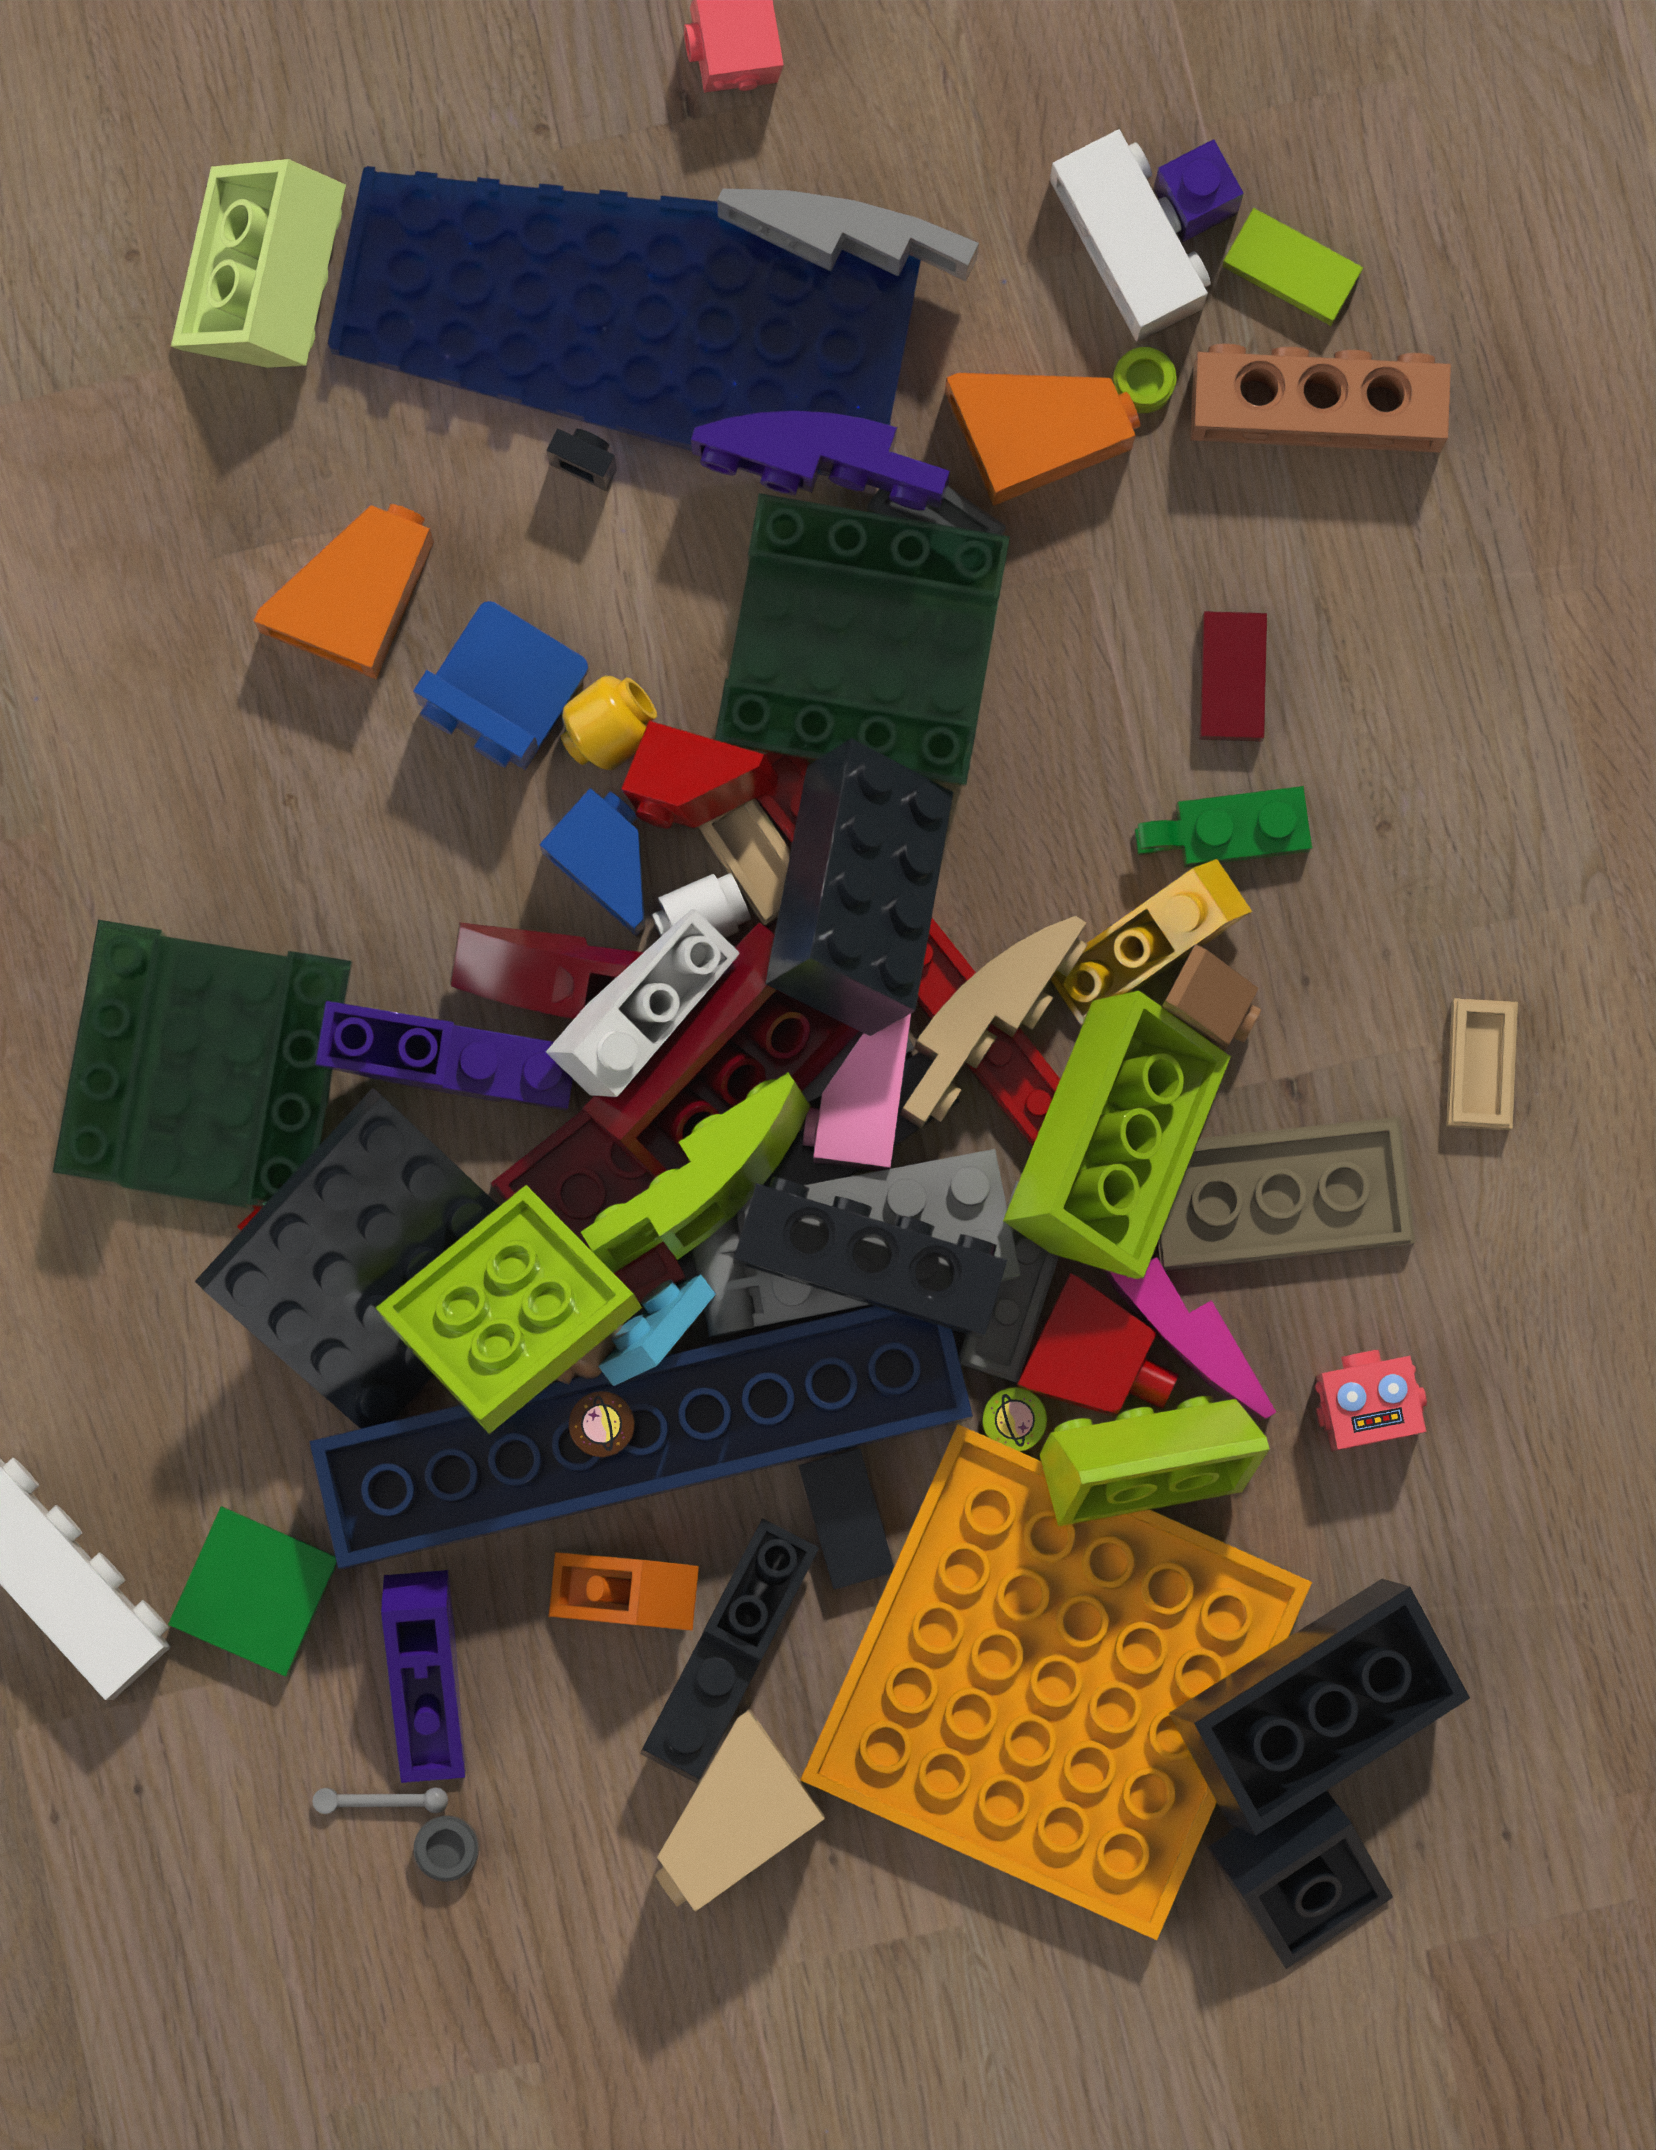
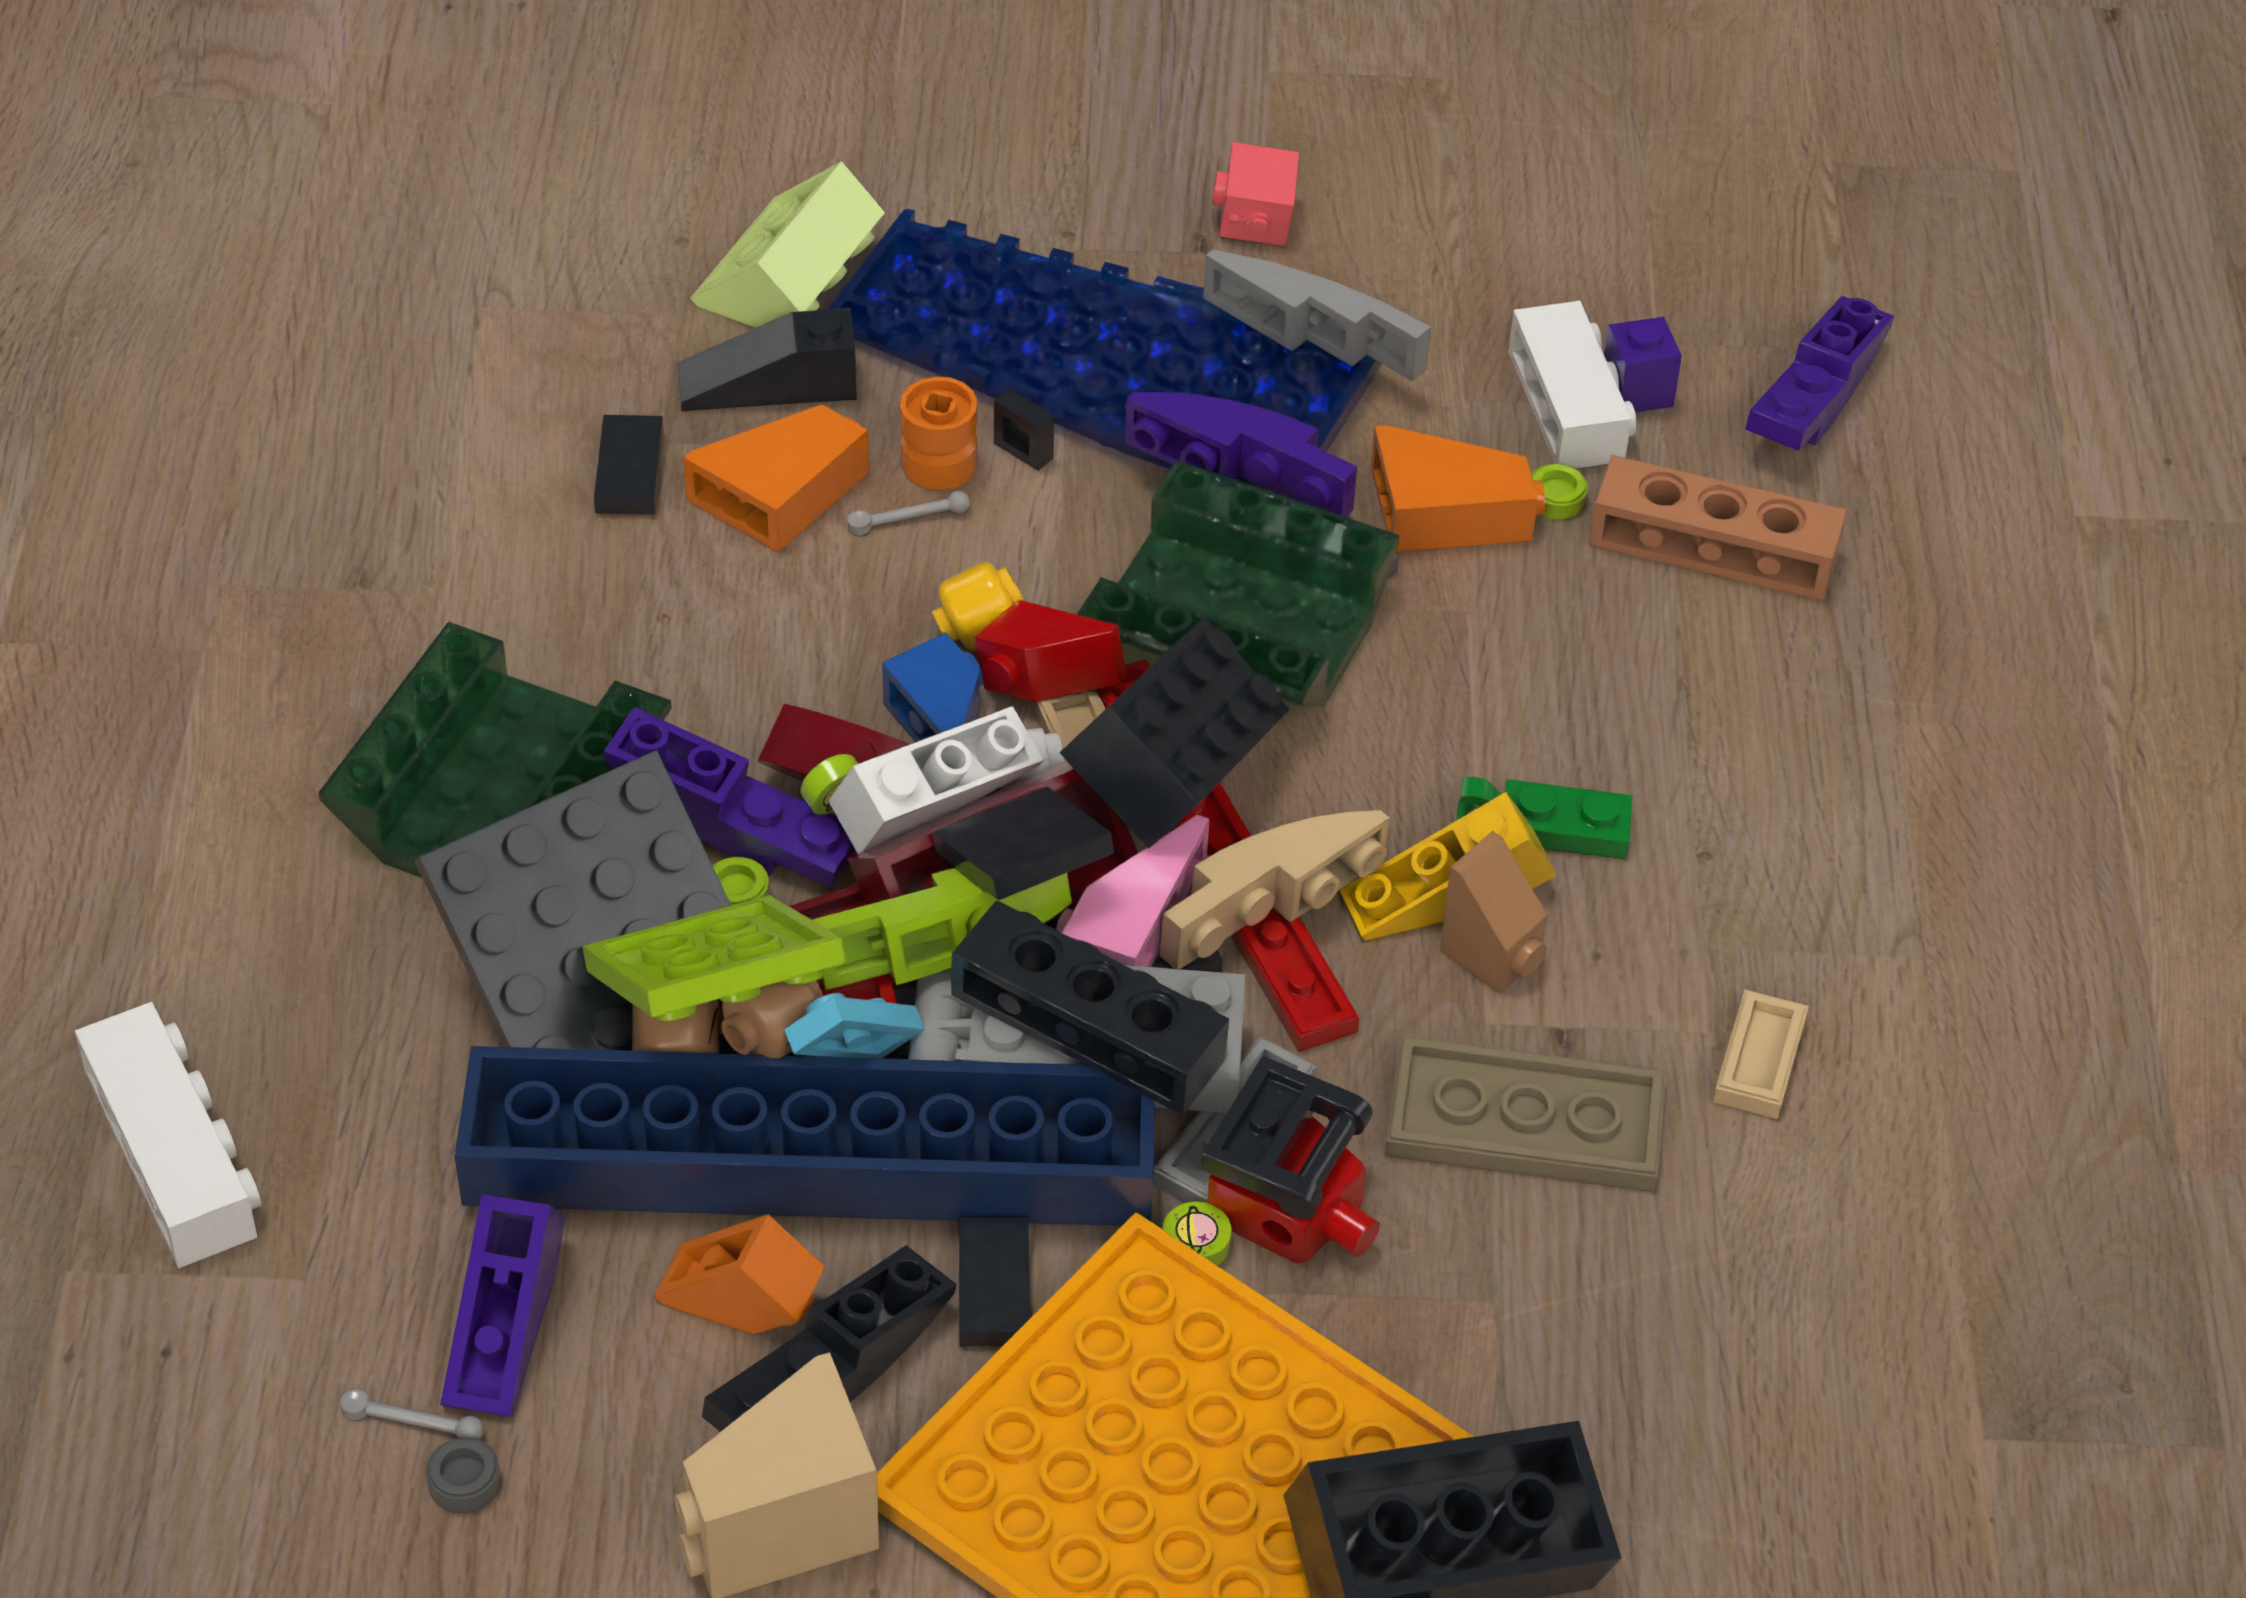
camera: 15 degrees right, 35 degrees down
(188, 609) = (629, 464): none -> black tile
(253, 1591) = (361, 1202): green tile -> none
(291, 437) = (778, 363): none -> black slope
(448, 619) = (861, 522): none -> light grey hinge
(475, 1133) = (742, 879): none -> lime tile
(499, 498) = (939, 433): none -> orange wheel
(502, 686) = (885, 568): blue bracket -> none
(543, 1030) = (824, 780): none -> lime tile
(601, 1424) = (769, 1089): tile -> none
(758, 1095) = (1023, 842): none -> black tile
(1059, 1332) = (1266, 1126): none -> black plate
(1117, 1136) = (1375, 993): lime slope -> none
(1151, 1459) = (1329, 1271): lime slope -> none
(1194, 1337) = (1407, 1198): dark pink slope -> none
(1233, 676) = (1584, 708): dark red tile -> none
(1292, 266) = (1714, 442): lime tile -> none
(1370, 1401) = (1576, 1297): coral head -> none
(1386, 151) = (1823, 375): none -> dark purple slope

